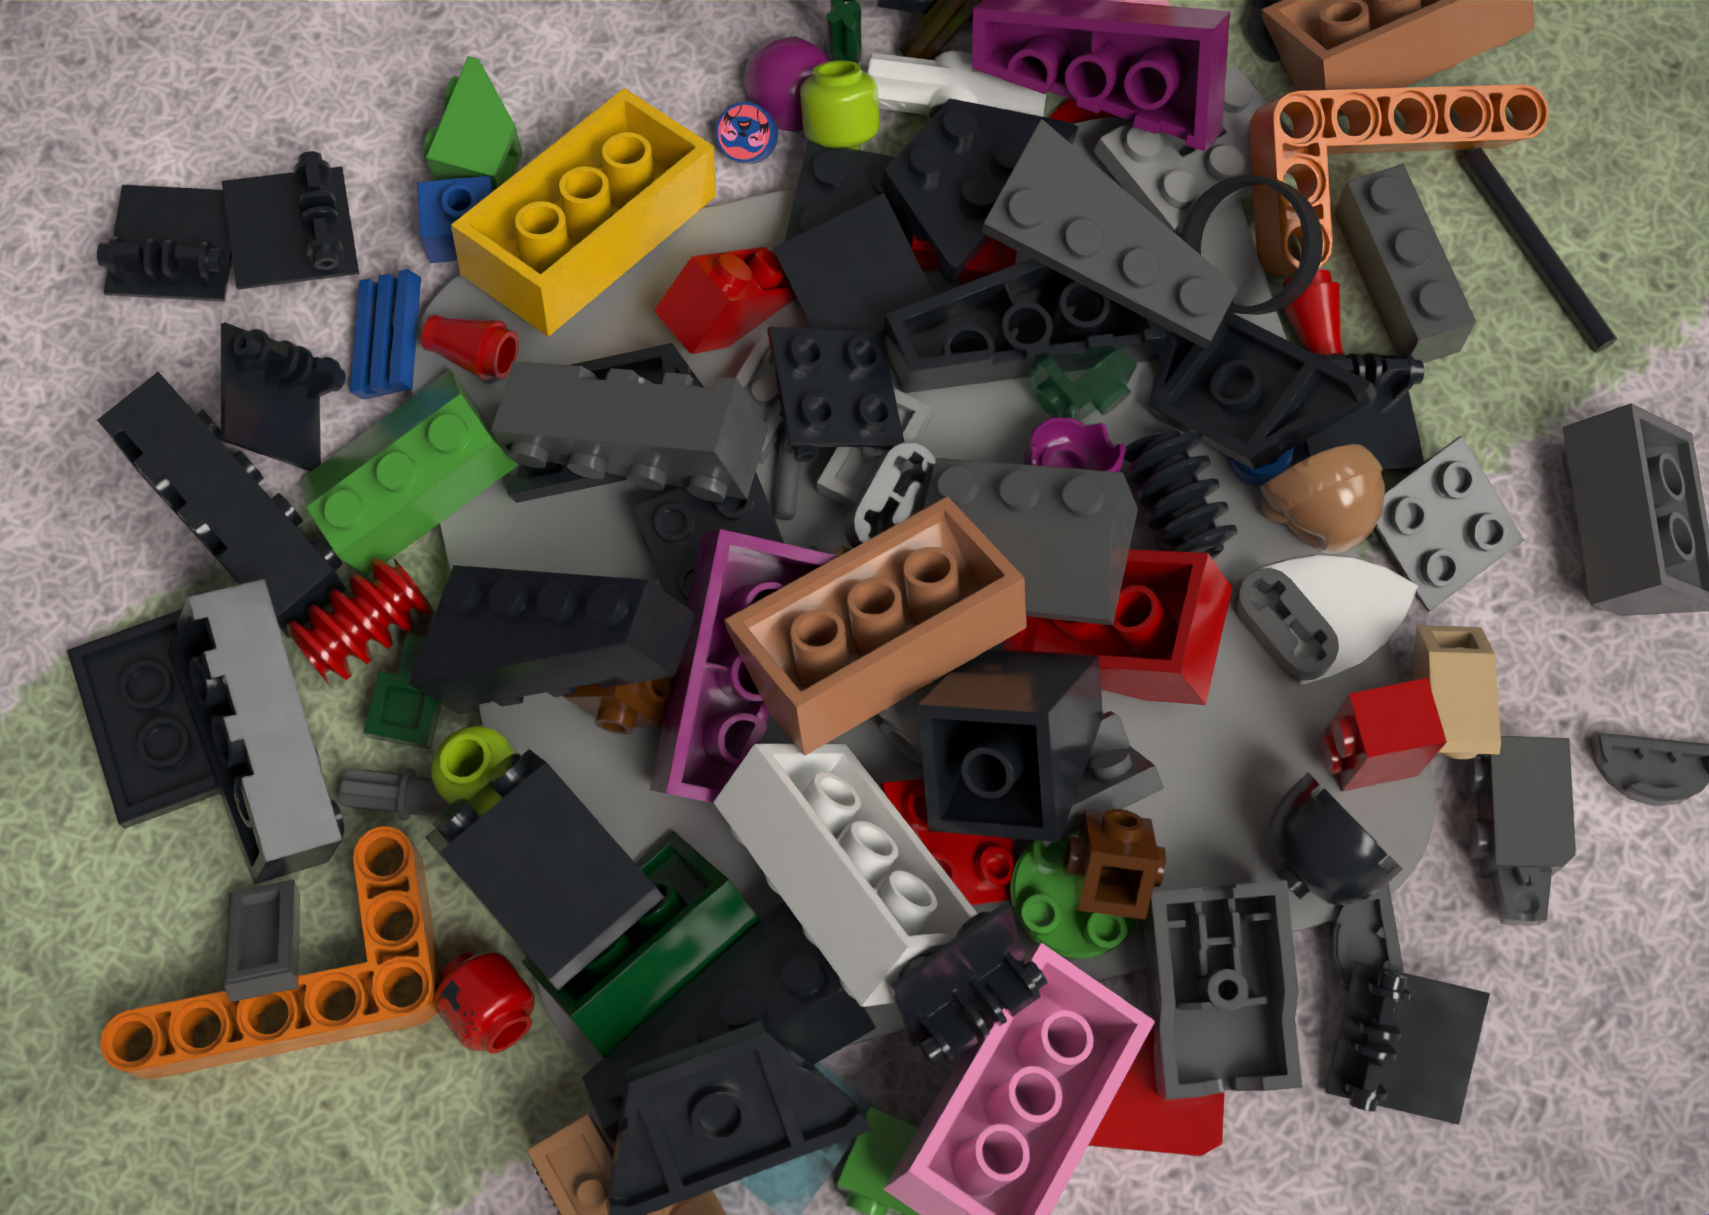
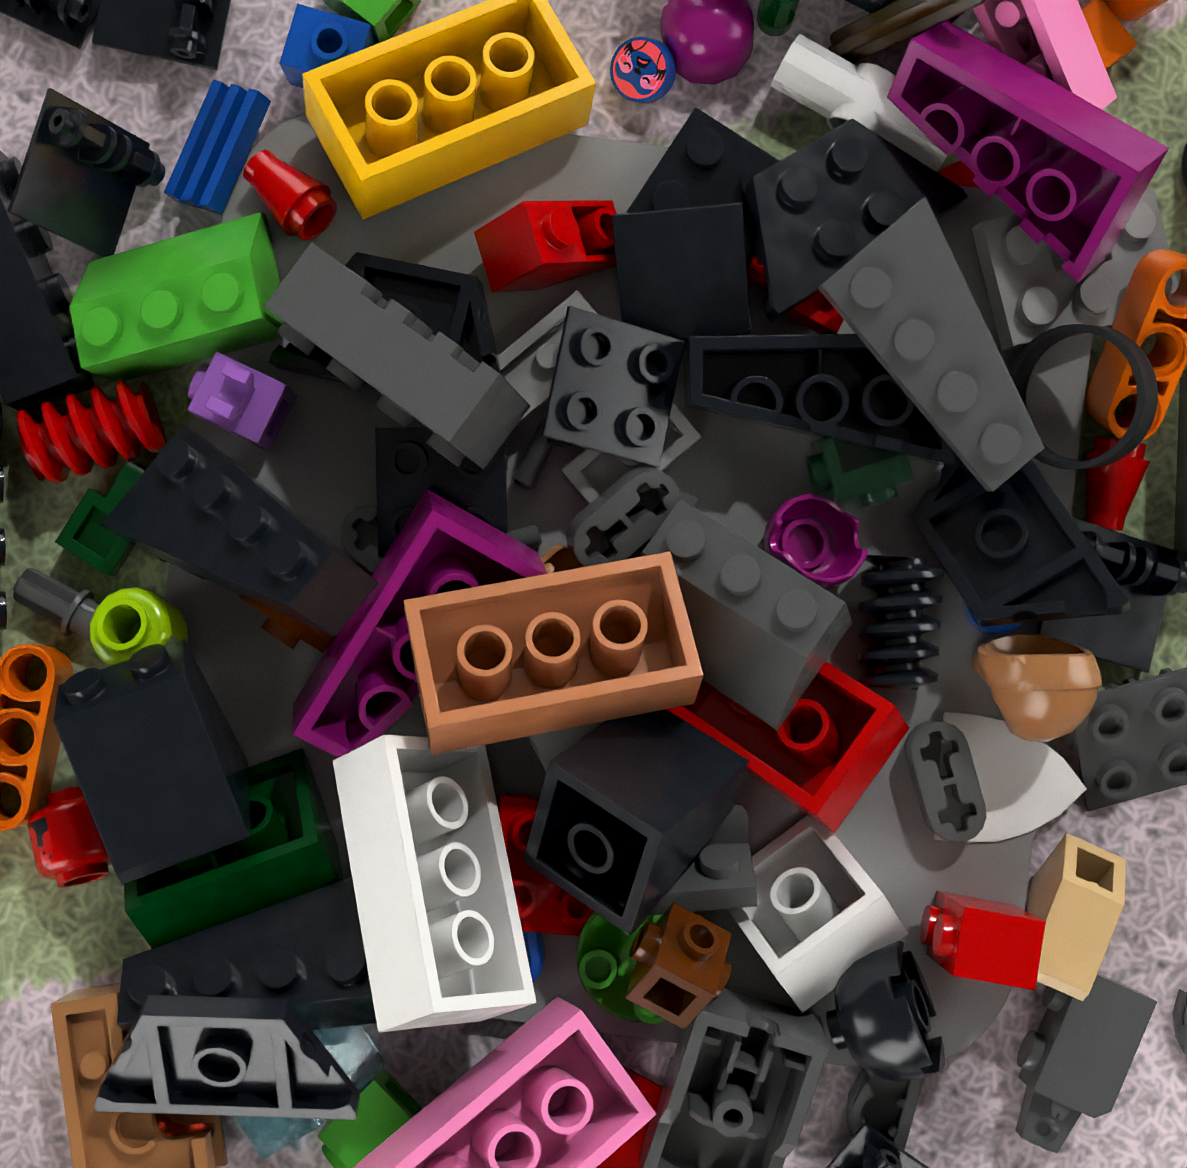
camera: 20 degrees right, 15 degrees up
(495, 530) = (240, 400): none -> medium lavender brick
(840, 105) = (741, 82): lime head -> none
(947, 983) = (452, 1040): black hinge -> none
(1220, 783) = (814, 911): none -> white slope

